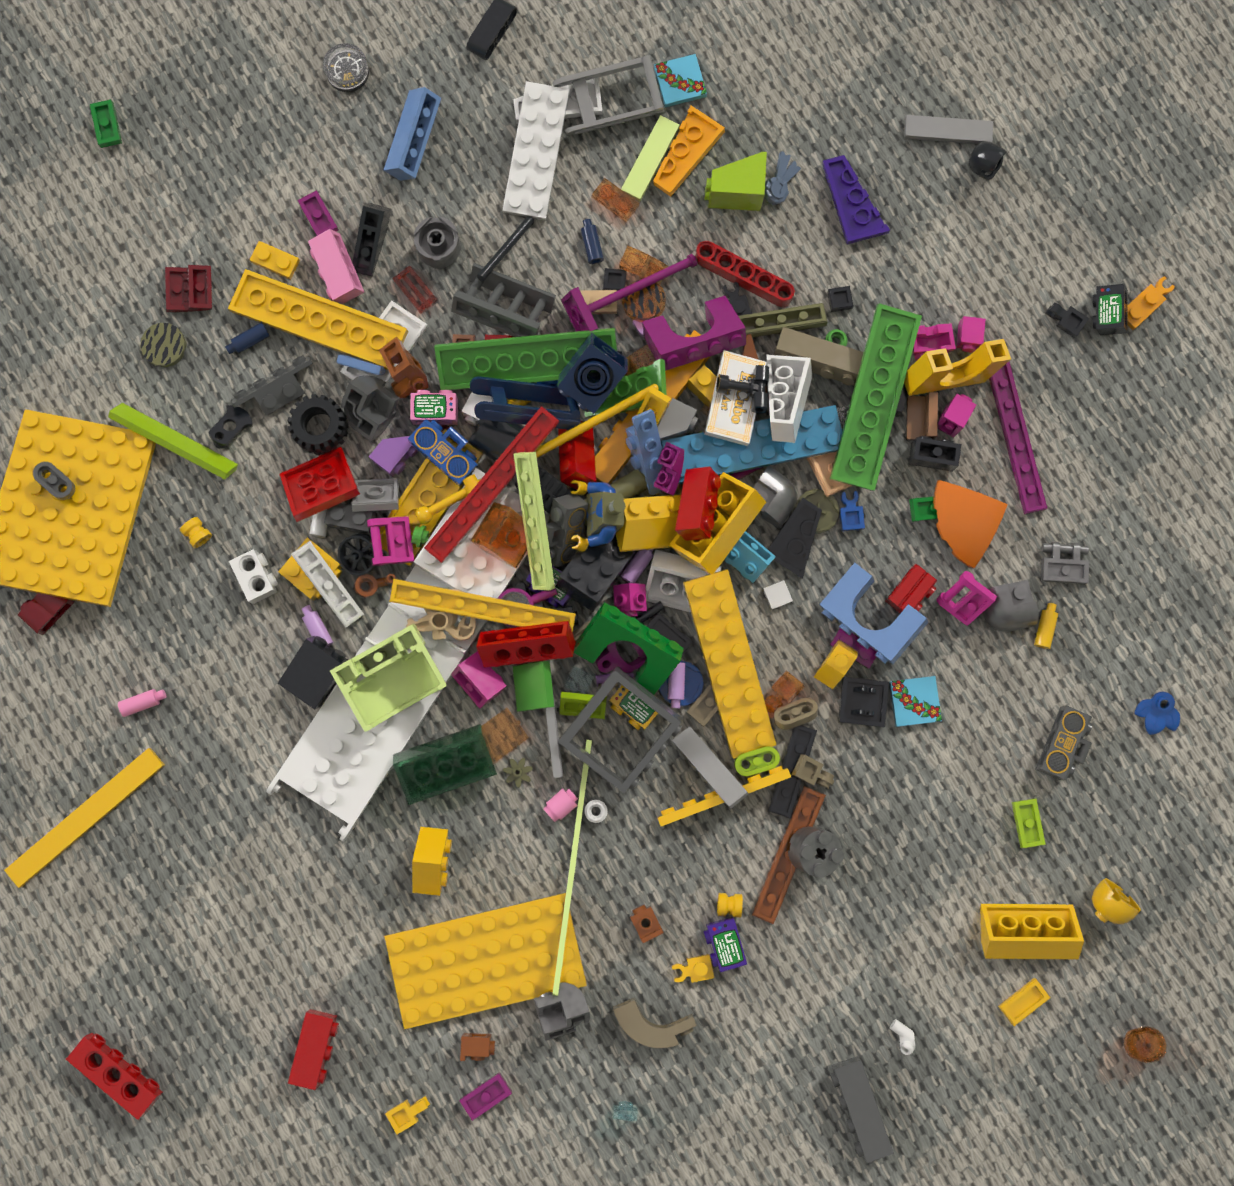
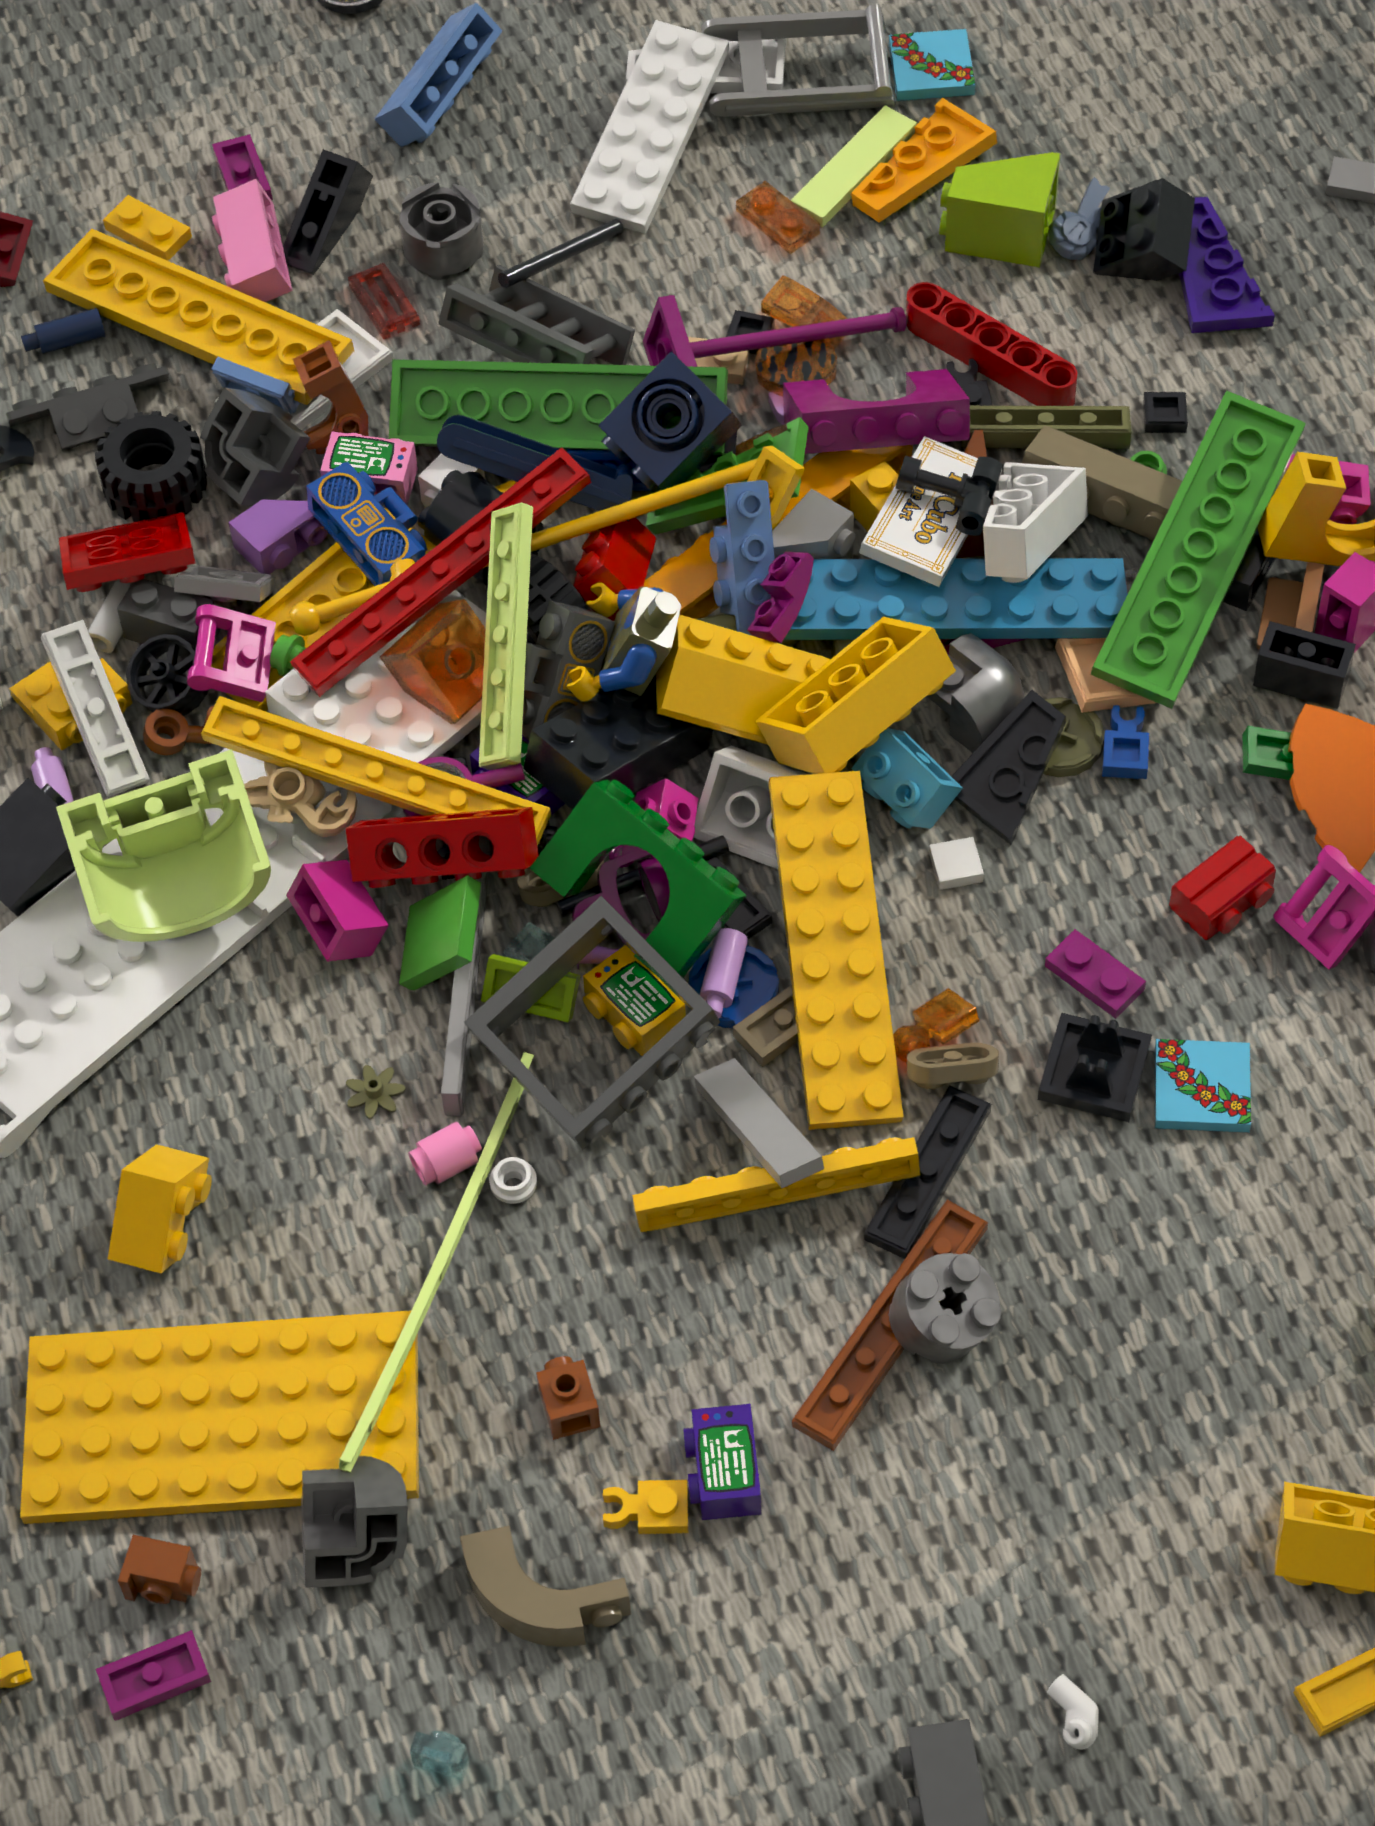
camera: 15 degrees right, 25 degrees down
(444, 764) = (232, 1036): clear green brick -> none
(503, 733) = (359, 1022): clear orange piece -> none
(591, 242) = (720, 271): dark blue cylinder -> none
(637, 565) = (694, 769): lavender cylinder -> none
(698, 503) = (822, 649): red brick -> none
(729, 905) = (749, 1387): yellow wheel -> none
(756, 761) = (855, 1129): lime plate -> none
(809, 771) = (959, 1162): dark tan plate -> none
(814, 186) = (1145, 232): none -> black slope
(836, 664) = (1048, 985): yellow slope -> none
(887, 642) = (1154, 948): medium blue arch -> none

